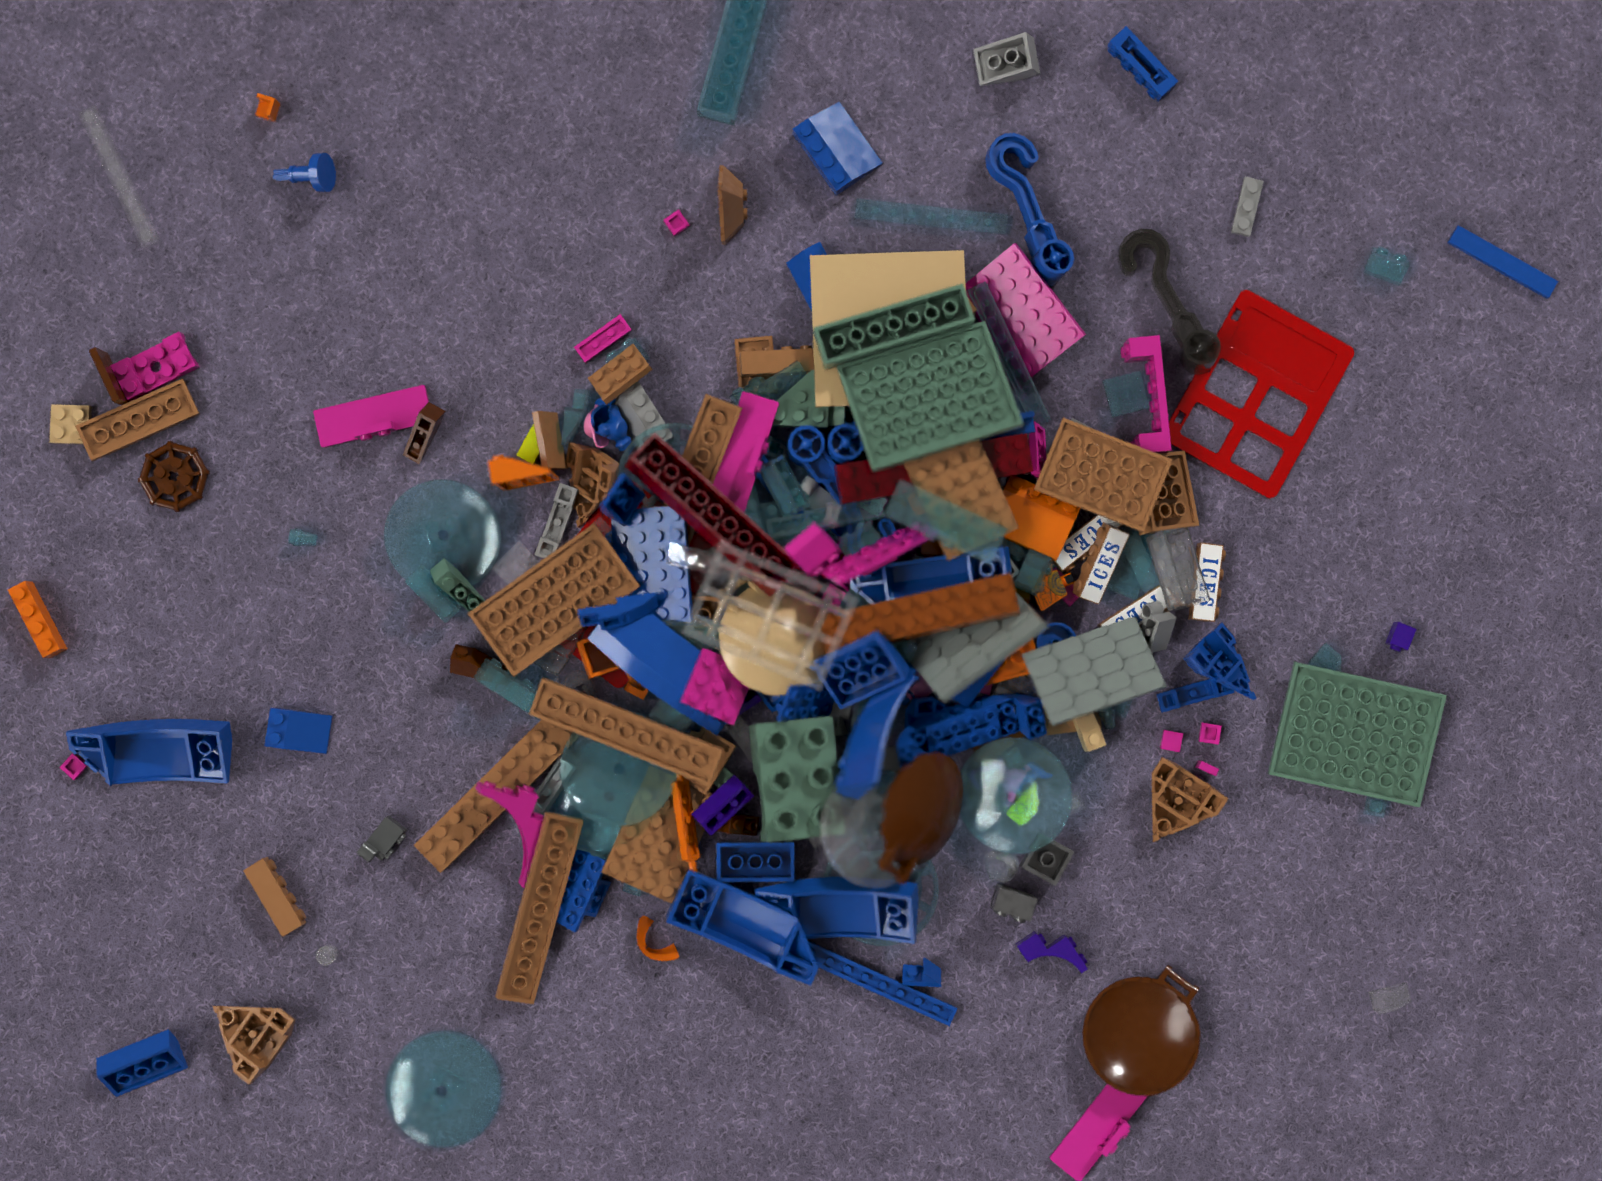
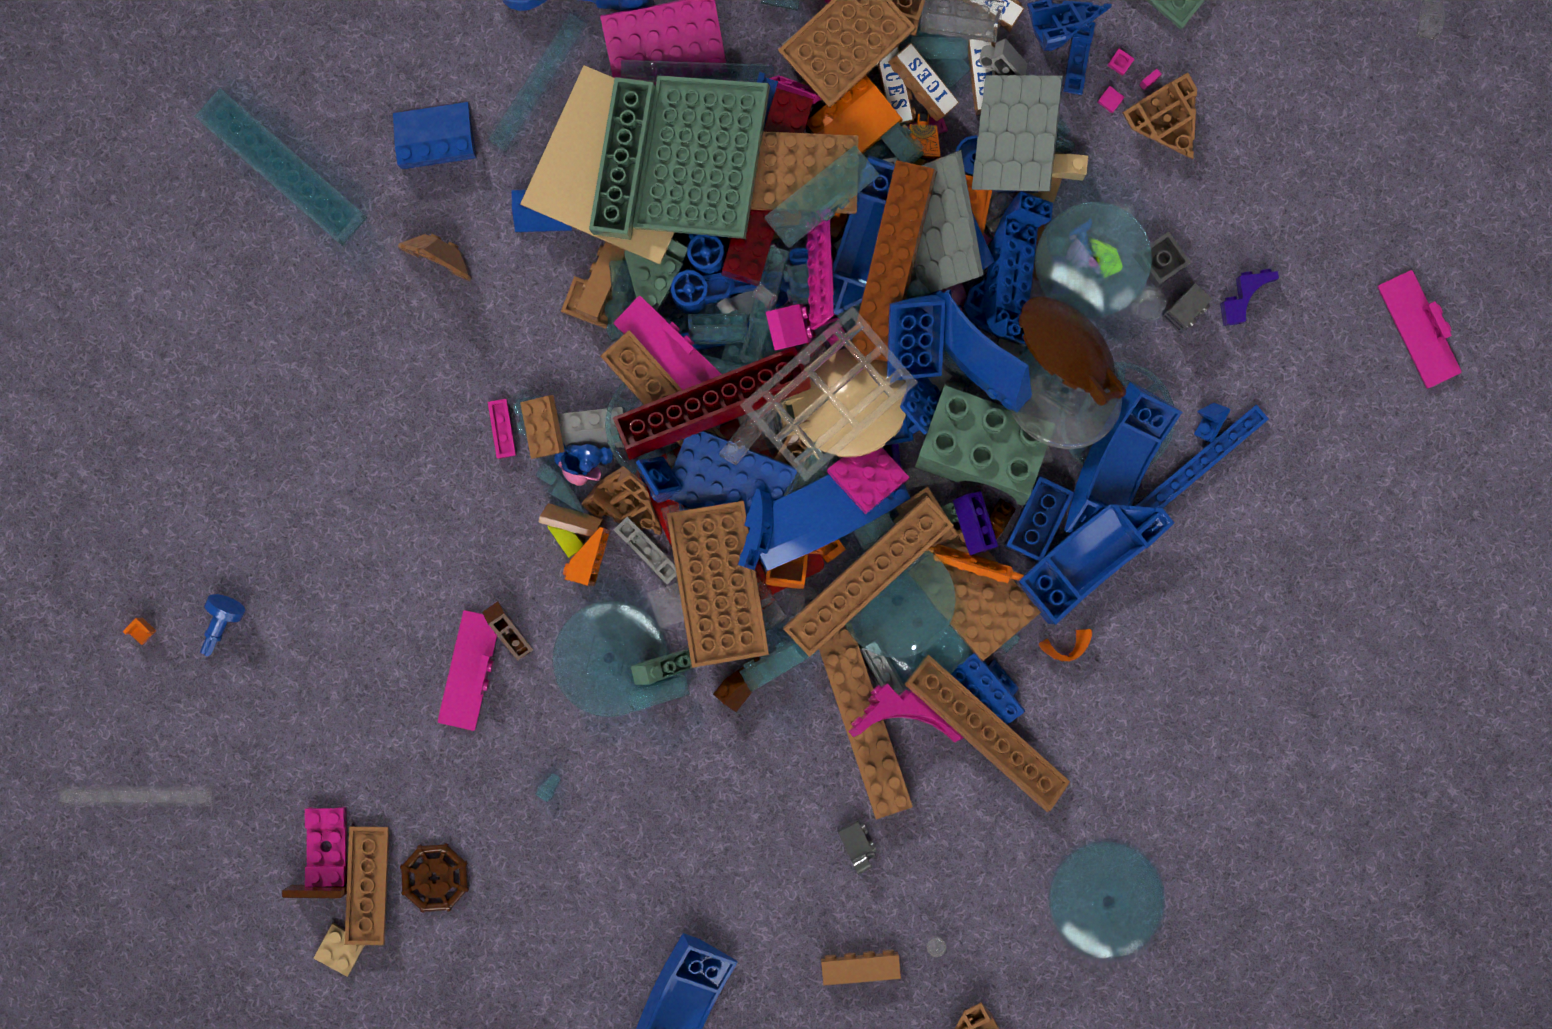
camera: 65 degrees left, 0 degrees up
(298, 730) = (721, 875): blue slope -> none
(676, 223) = (429, 312): dark pink tile -> none
(1142, 1034) = (1358, 250): reddish brown dish -> none

